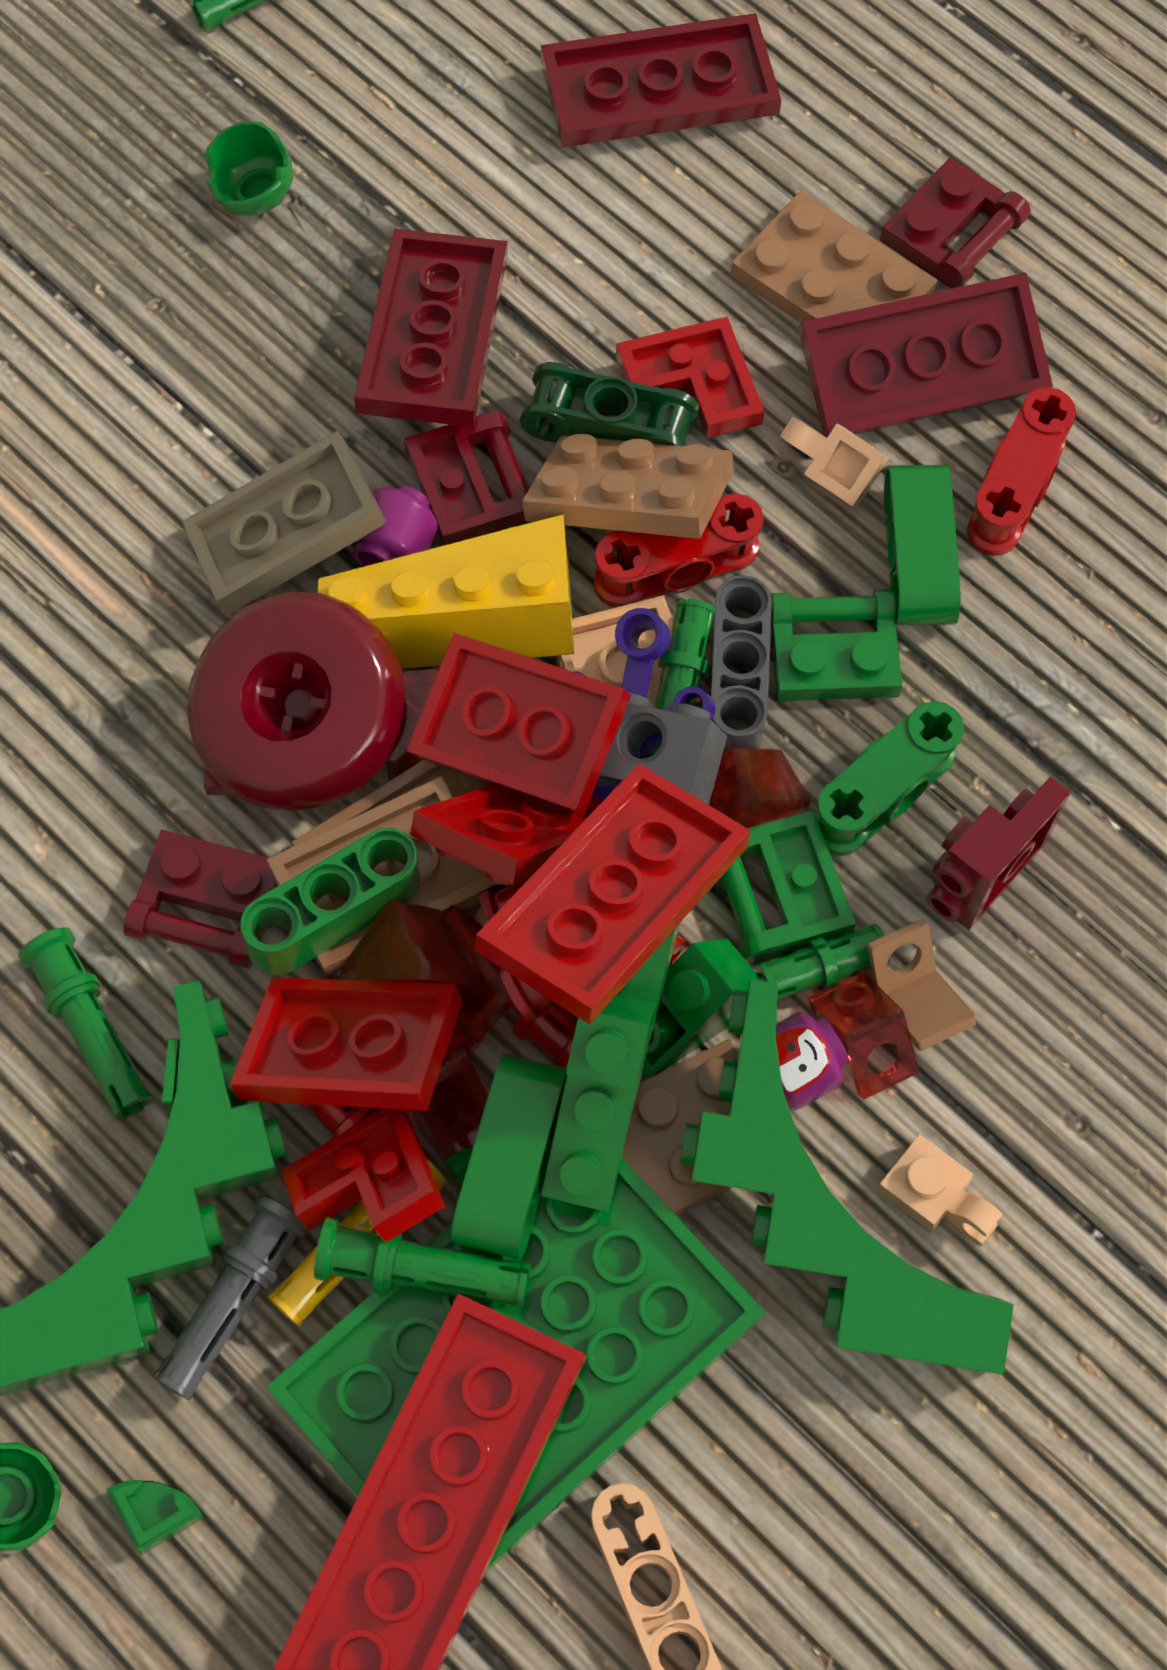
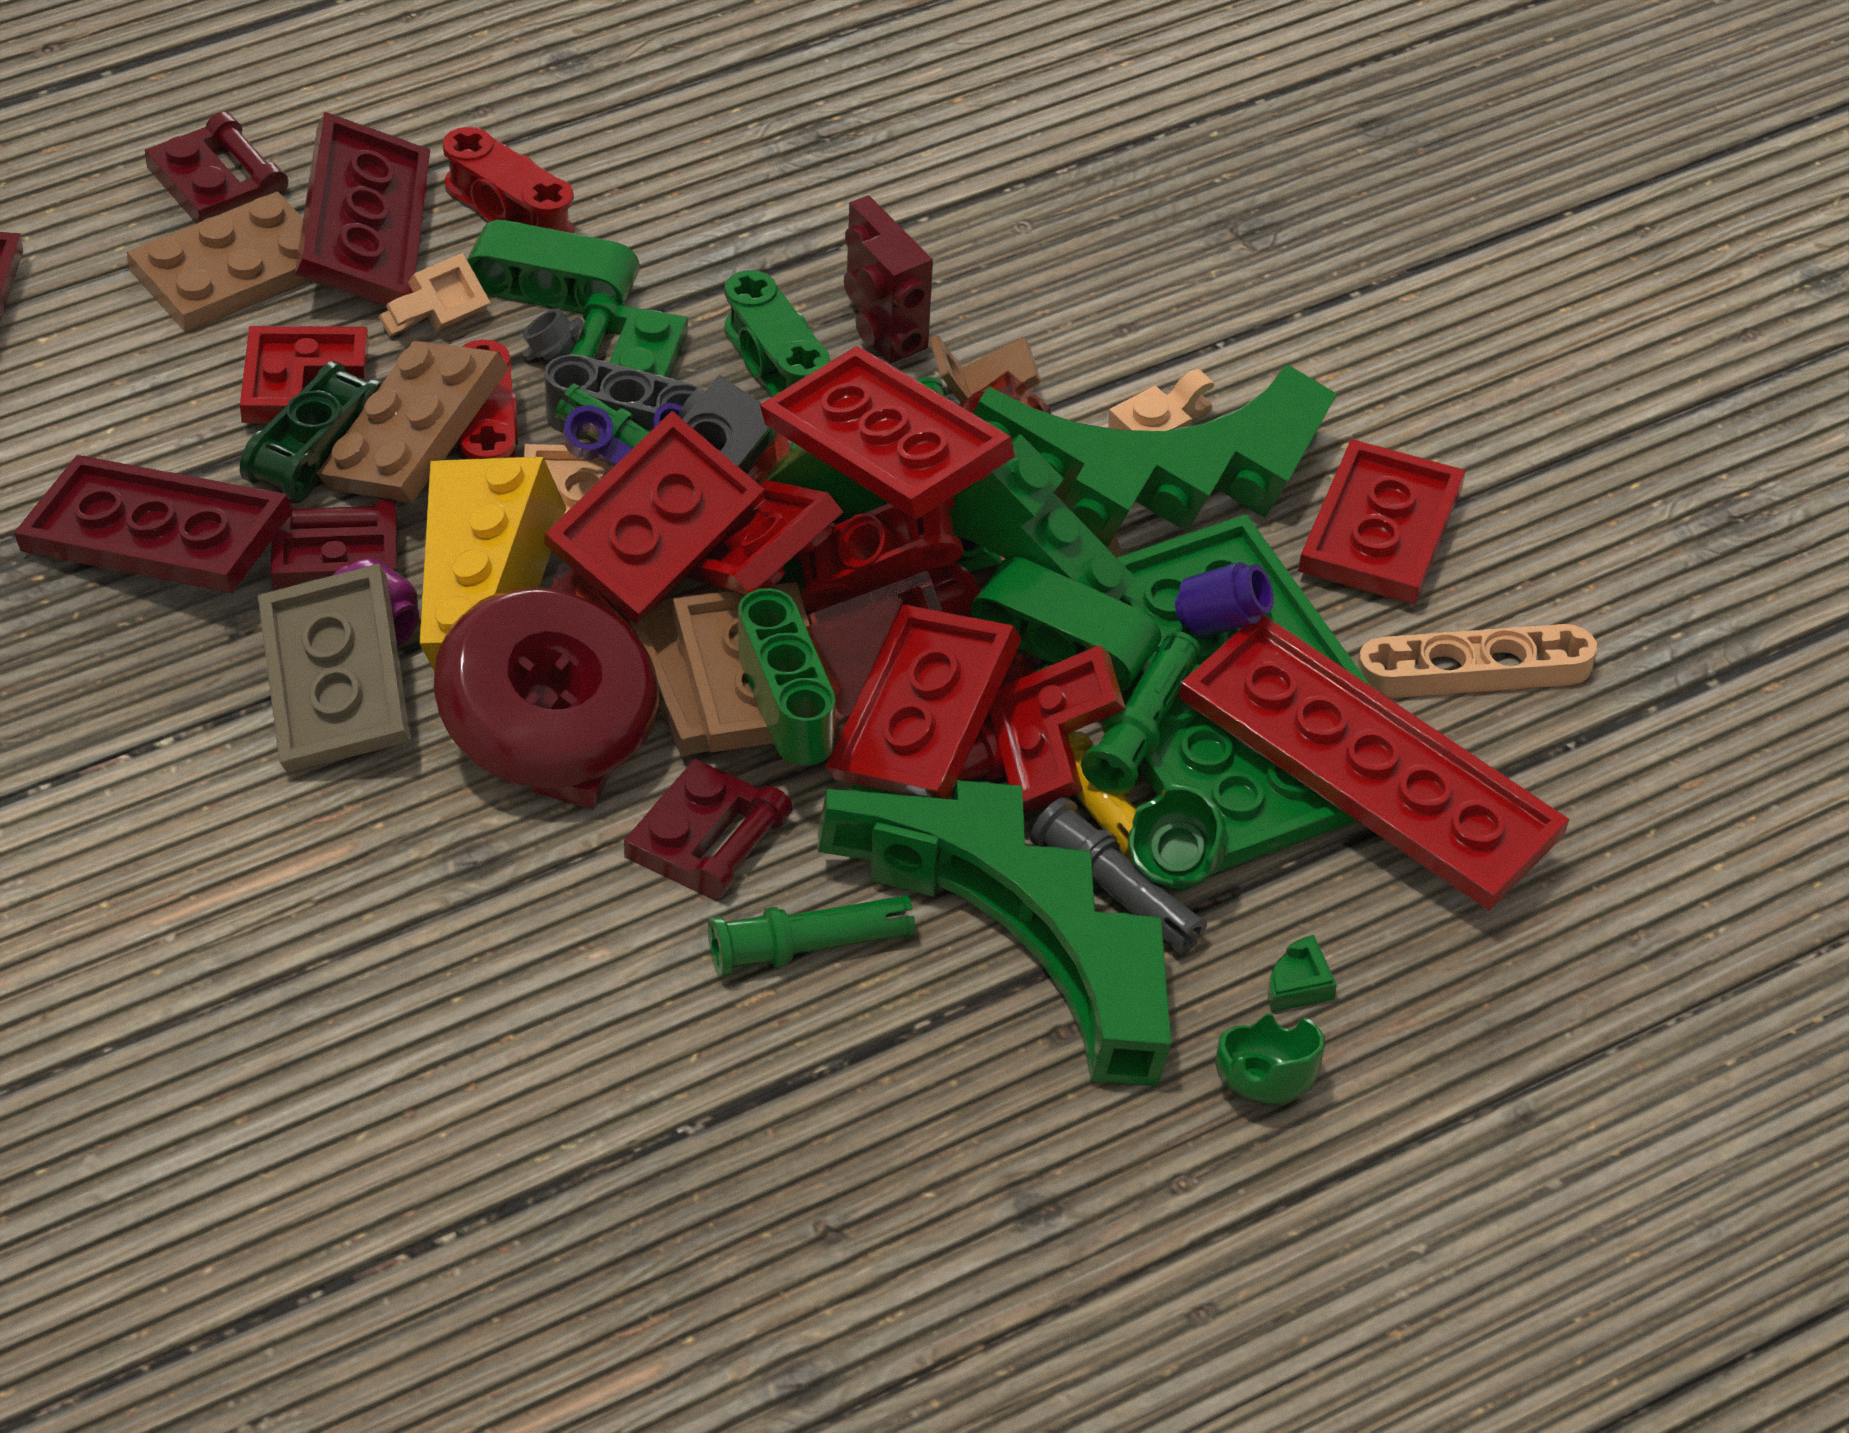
camera: 75 degrees left, 20 degrees down
(255, 1342) = (1178, 838): none -> green hair
(582, 1311) = (1224, 599): none -> dark purple brick
(822, 572) = (551, 335): none -> dark grey plate
(847, 1471) = (1382, 521): none -> red plate

